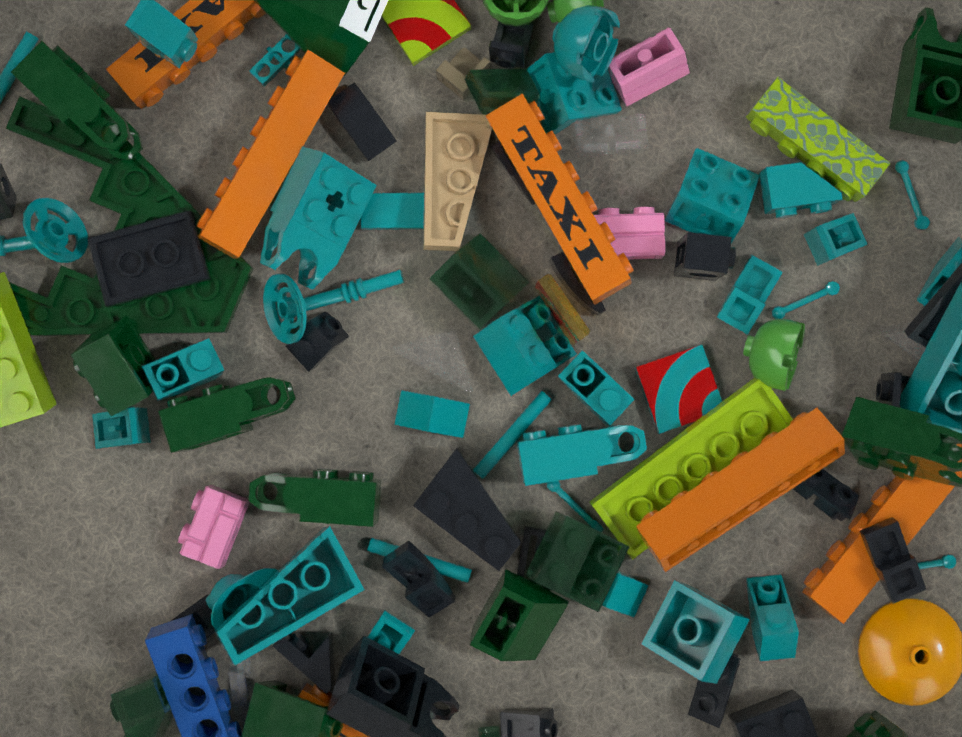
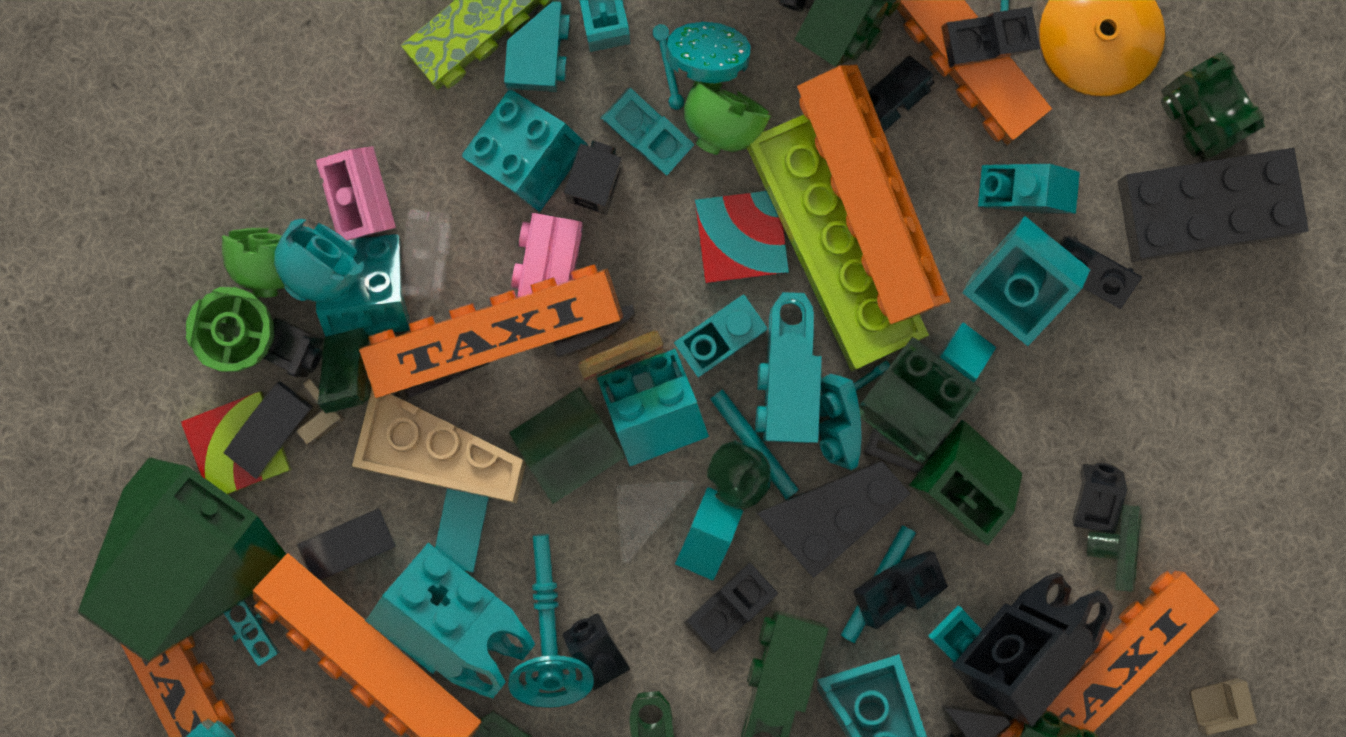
camera: 80 degrees left, 0 degrees up
(375, 443) = (731, 608): none -> black slope
(442, 37) = (268, 429): none -> black slope
(485, 427) = (739, 474): none -> clear green hair
(537, 504) = (843, 430): none -> teal slope
(827, 329) = (708, 51): none -> teal tile

